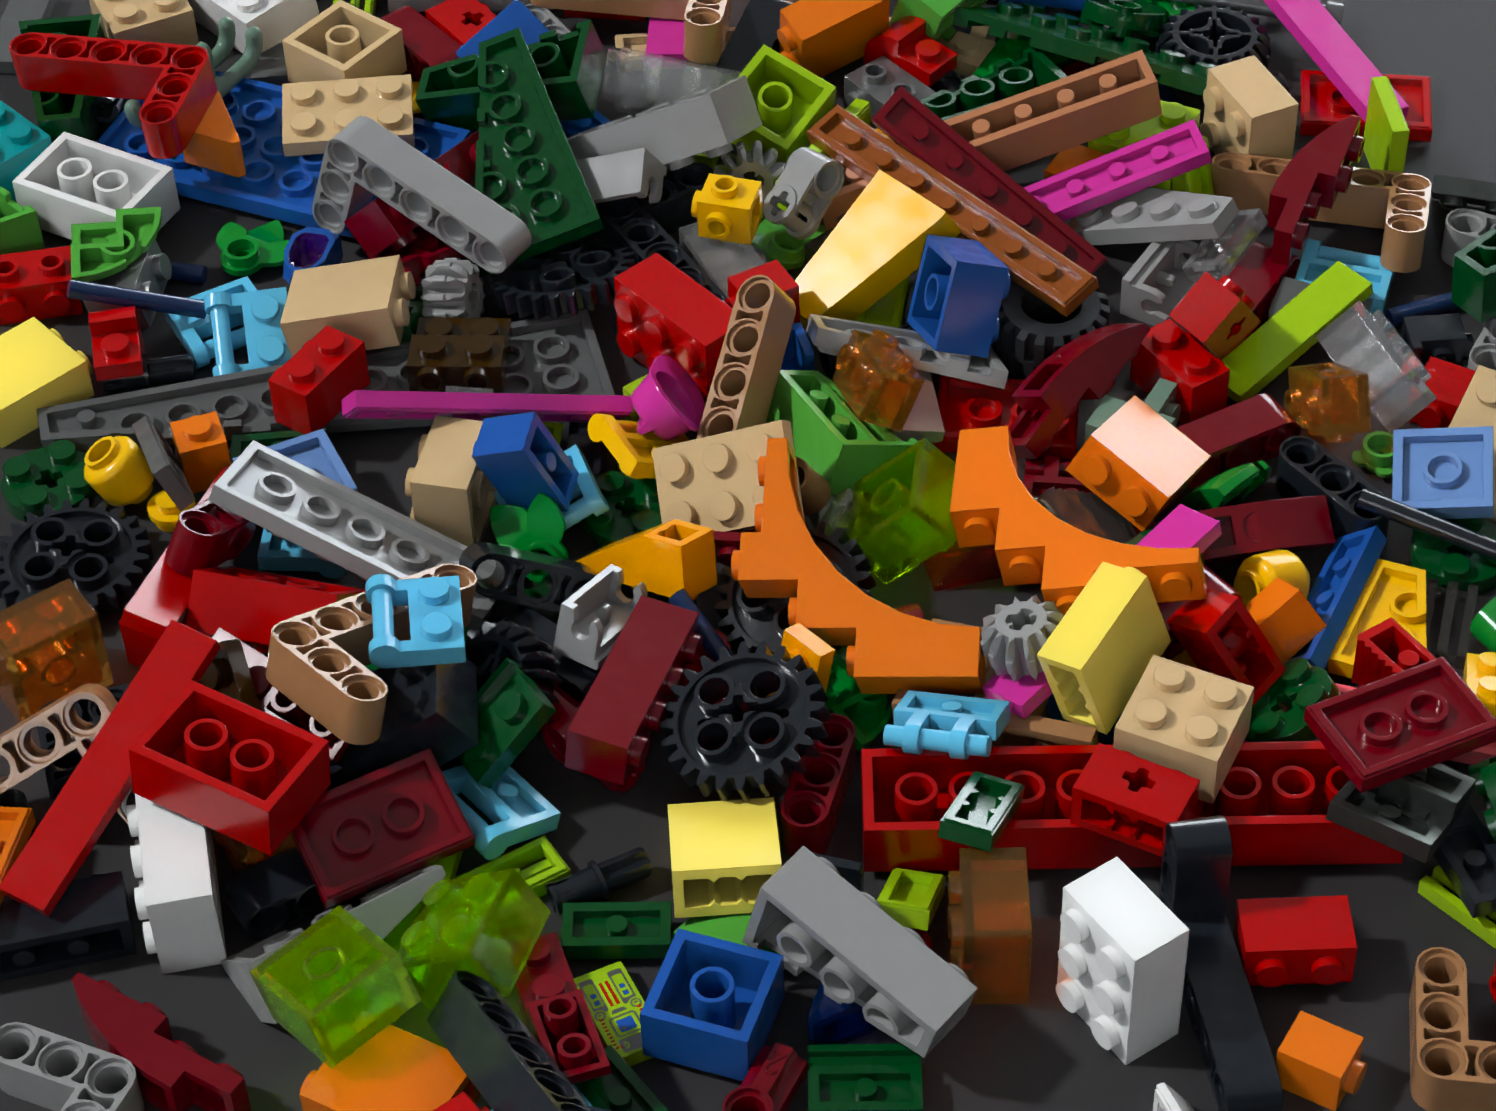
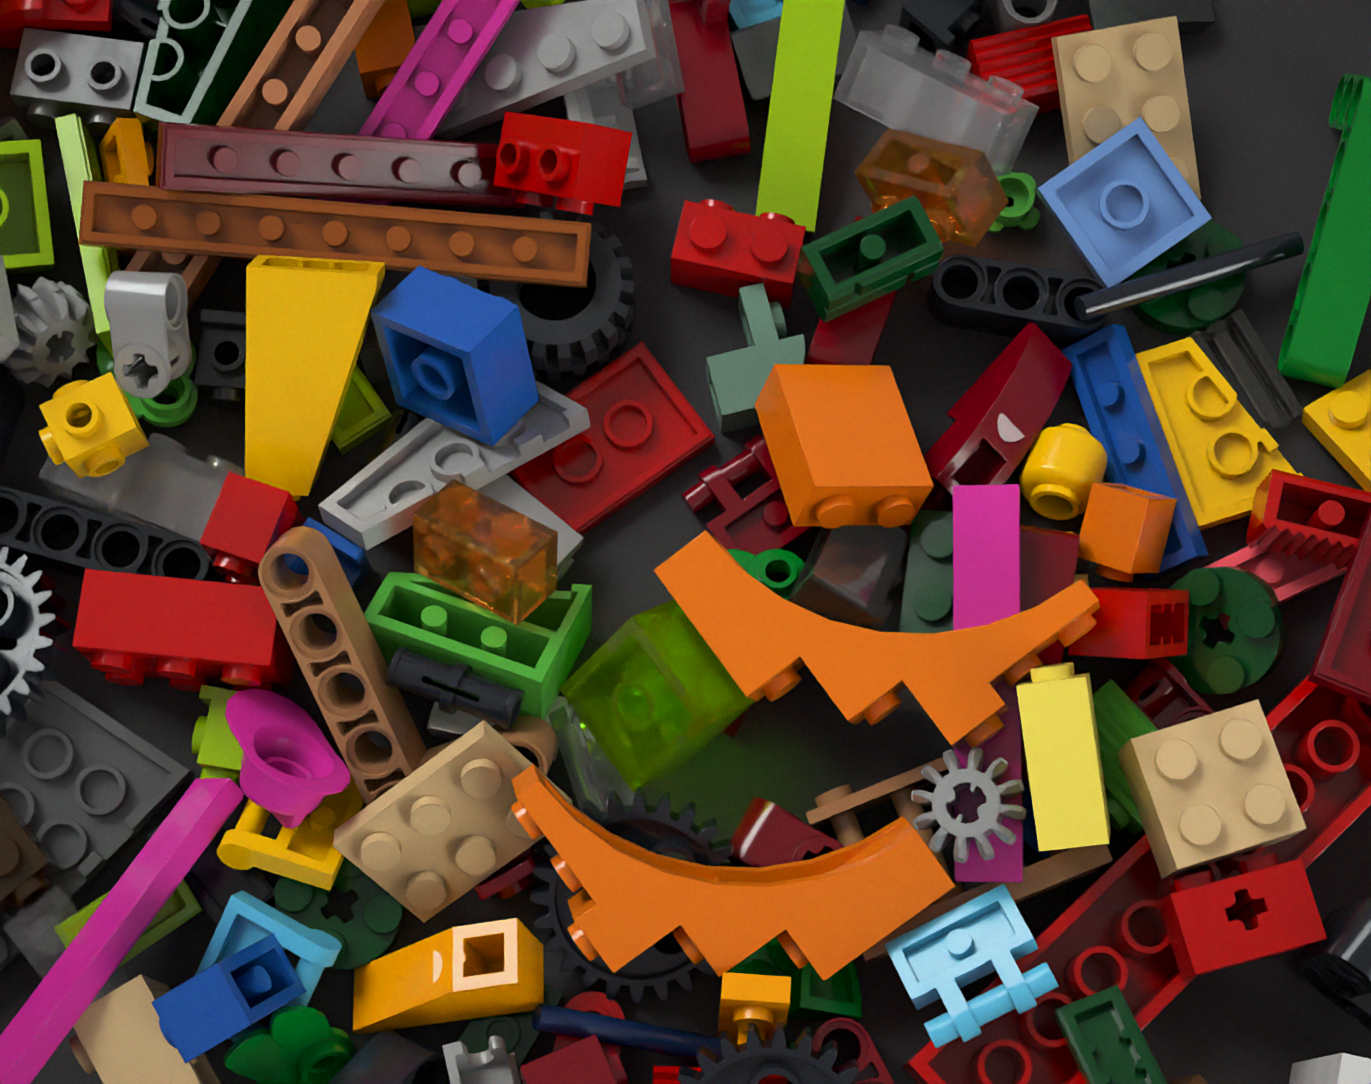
camera: 45 degrees left, 30 degrees up
(806, 439) = (415, 674): none -> black pin
(1073, 373) = (658, 383): dark red slope -> none
(1116, 253) = (562, 159): none -> red brick
(1216, 314) = (739, 168): red brick -> none
(1228, 487) = (932, 379): green brick -> none
(1246, 390) = (869, 258): none -> dark green brick

